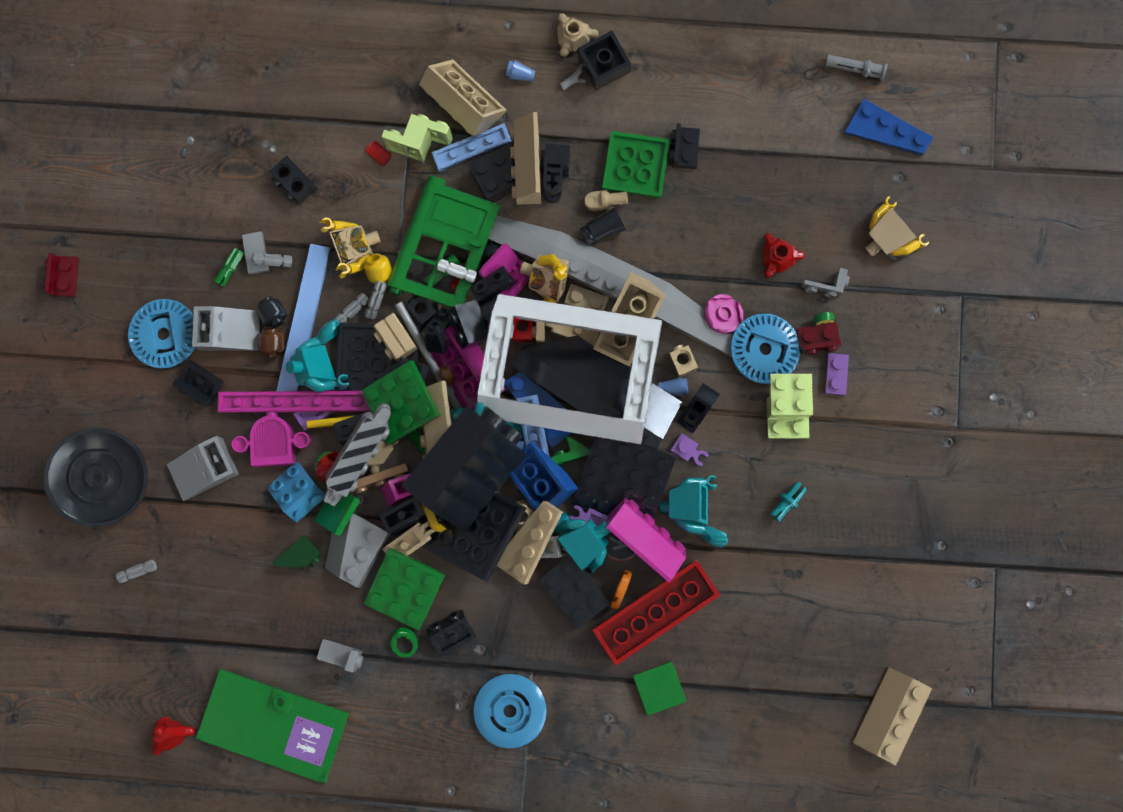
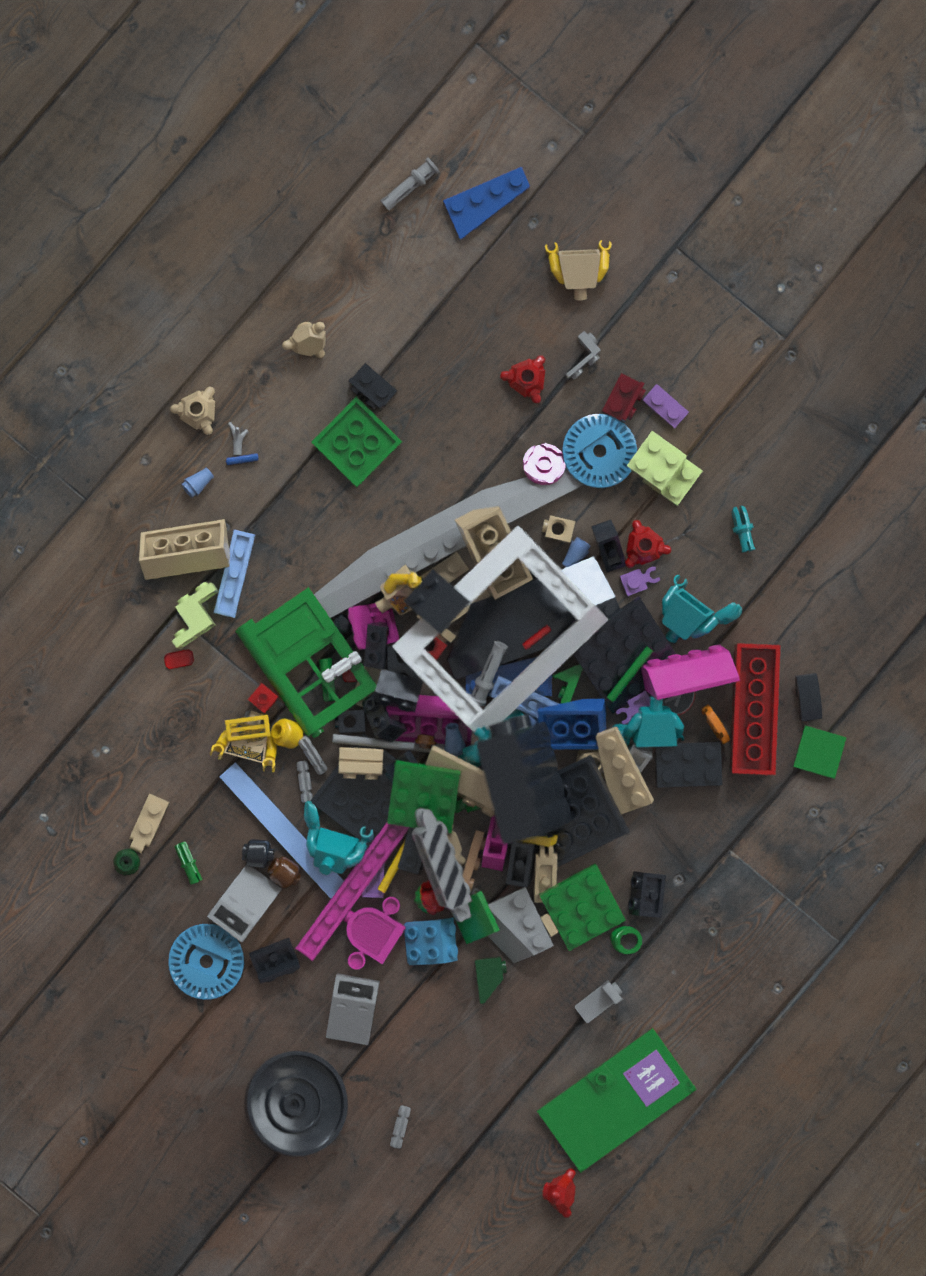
camera: 60 degrees left, 5 degrees up
(61, 275) = (88, 1015): dark red bracket -> none
(203, 225) = (133, 862): none -> dark green plate
(239, 217) = (148, 822): none -> tan hinge
(254, 244) = (191, 830): light grey tile -> none
(271, 259) = (210, 820): light grey axle -> none
(295, 178) = (150, 747): black brick -> none
(371, 248) = (230, 730): none -> yellow tile
(372, 572) = (549, 924): none -> tan tile
(392, 233) = (263, 698): none -> red brick
(462, 396) = (454, 741): none -> medium blue cone
(493, 173) = (279, 561): black brick -> none
(519, 728) = (727, 893): dark azure piece -> none
(523, 387) = (484, 682): none -> light grey pin
(527, 160) = (291, 537): tan slope -> none
(556, 164) = (307, 512): black brick -> none
(556, 299) = (436, 601): none -> black slope
(561, 92) = (242, 459): none -> blue piece
(587, 400) = (536, 637): none -> red piece
(597, 493) = (630, 674): none -> green bar
(603, 200) = (367, 493): tan arm -> none
(603, 226) = (391, 511): black plant -> none
(604, 60) = (243, 401): black brick -> none
(684, 74) = (307, 340): none -> tan rock
(696, 648) = (809, 697): none -> black slope
(718, 435) = (644, 545): none -> red rock
(824, 318) = (610, 381): green tile -> none

